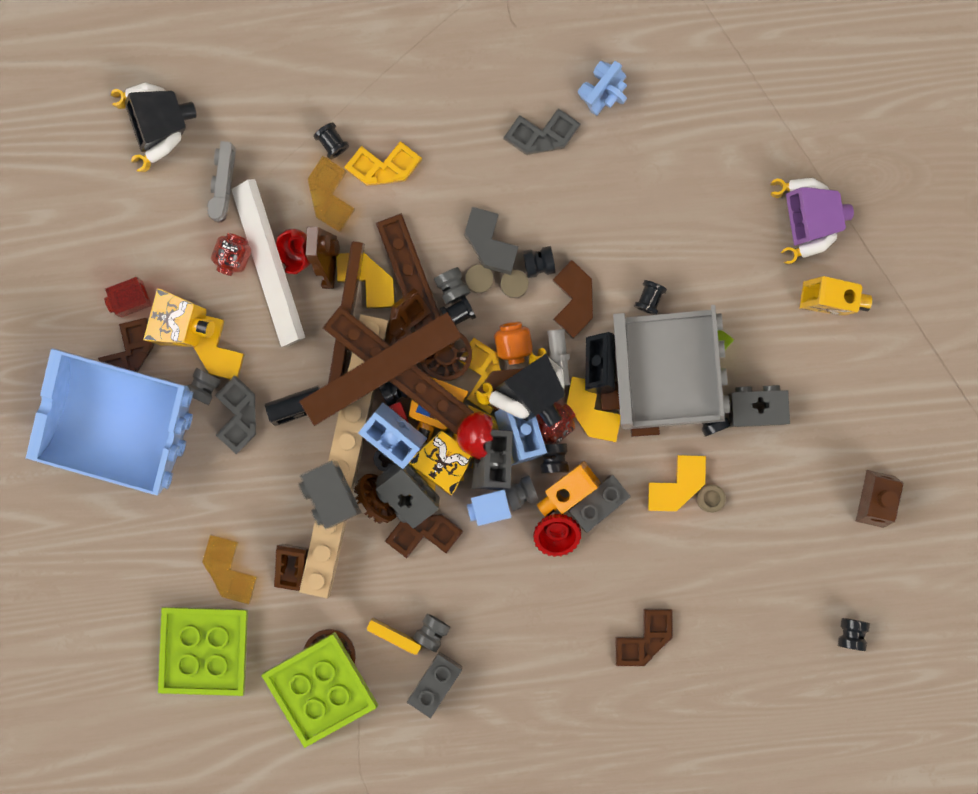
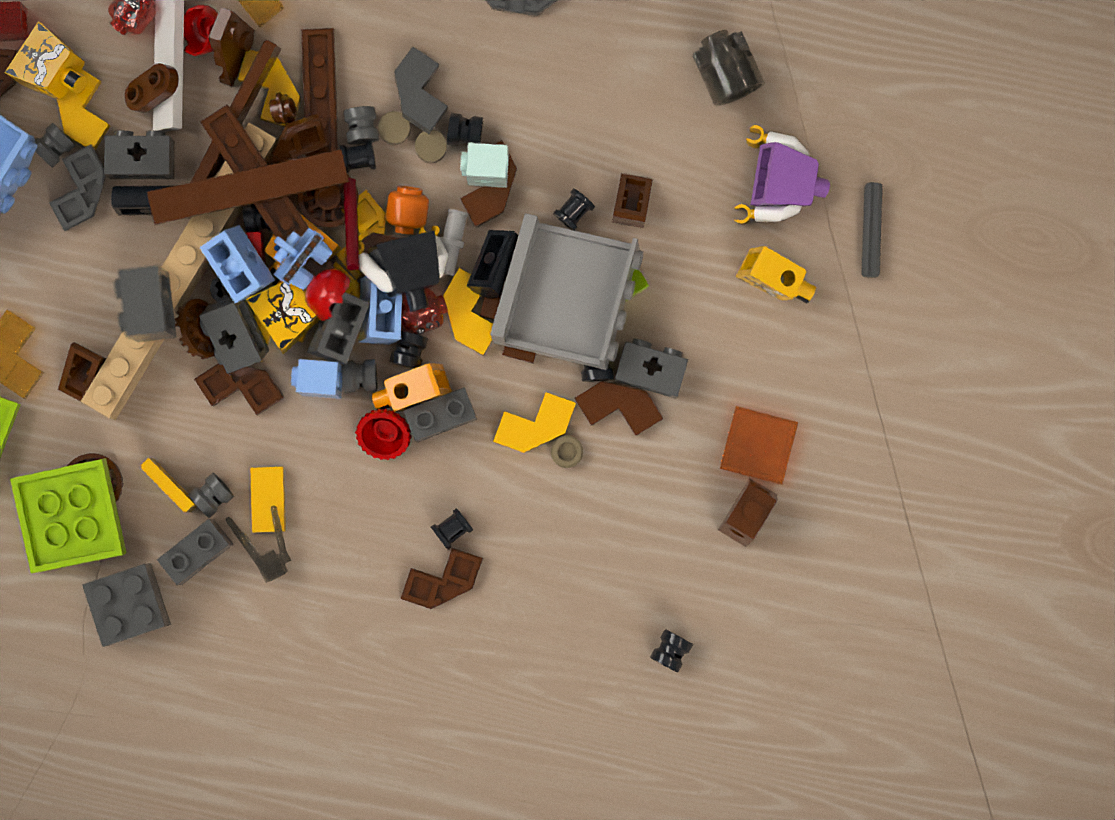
camera: 20 degrees right, 0 degrees up
(264, 317) = (151, 88): none -> reddish brown plate
(265, 383) = (121, 163): none -> dark grey brick
(384, 294) = (282, 109): none -> reddish brown plate
(392, 747) = (126, 604): none -> dark grey brick
(439, 412) = (308, 246): none -> light blue hips
(475, 372) = (351, 225): none -> dark red bar
(479, 620) = (267, 490): none -> yellow tile
(498, 673) = (269, 563): none -> clear smoke plant
(569, 285) = (485, 165): none -> light aqua brick
(639, 594) = (452, 528): none -> black bush
(696, 274) = (632, 200): none -> reddish brown slope
(738, 138) = (727, 67): none -> clear smoke gear
(752, 441) = (608, 397): none -> reddish brown tile
(866, 441) = (758, 445): none -> clear orange tile
(898, 233) = (872, 230): none -> dark grey axle

